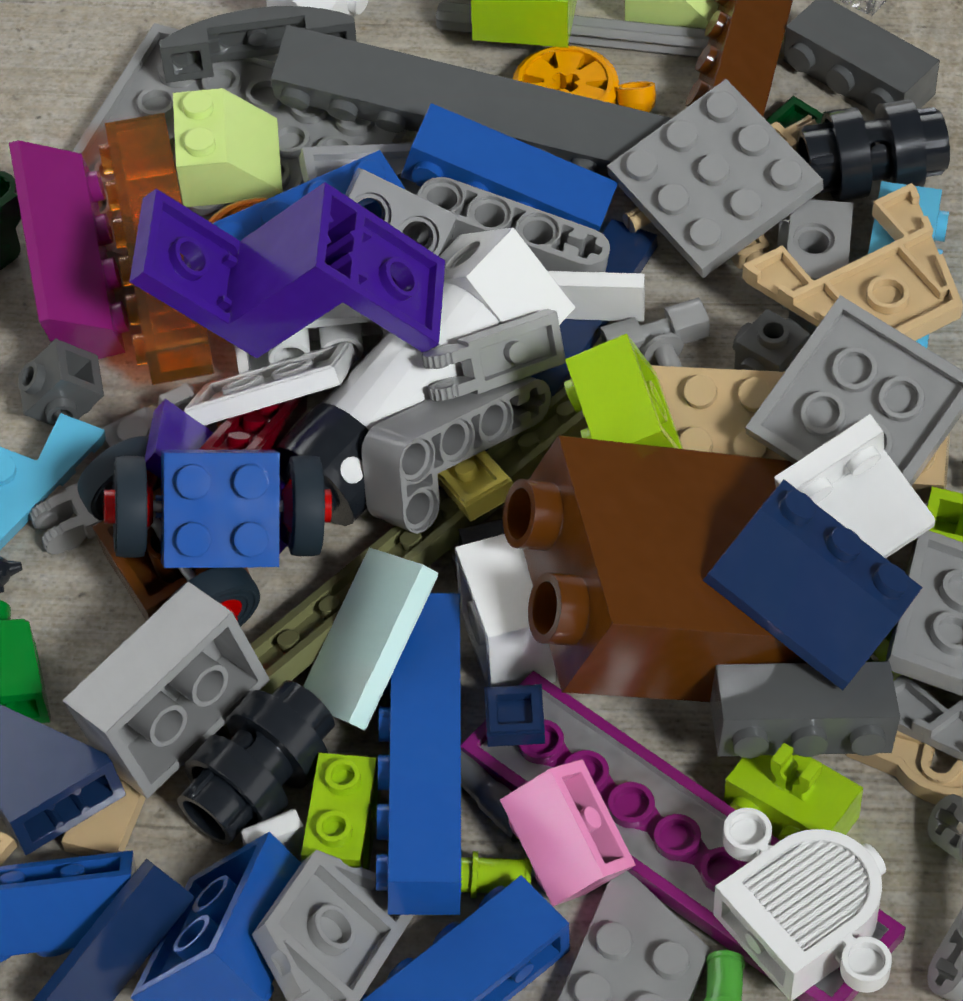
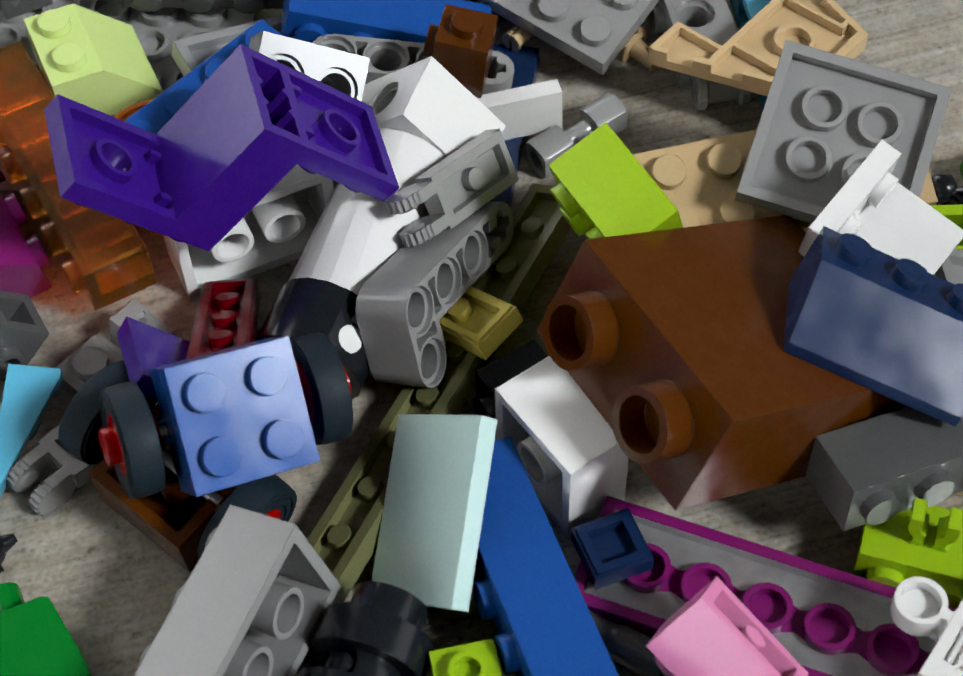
camera: 20 degrees left, 0 degrees up
(272, 384) = (228, 276): white tile -> none
(557, 224) = (463, 45): none -> reddish brown brick
(768, 343) = (698, 116): dark grey brick -> none

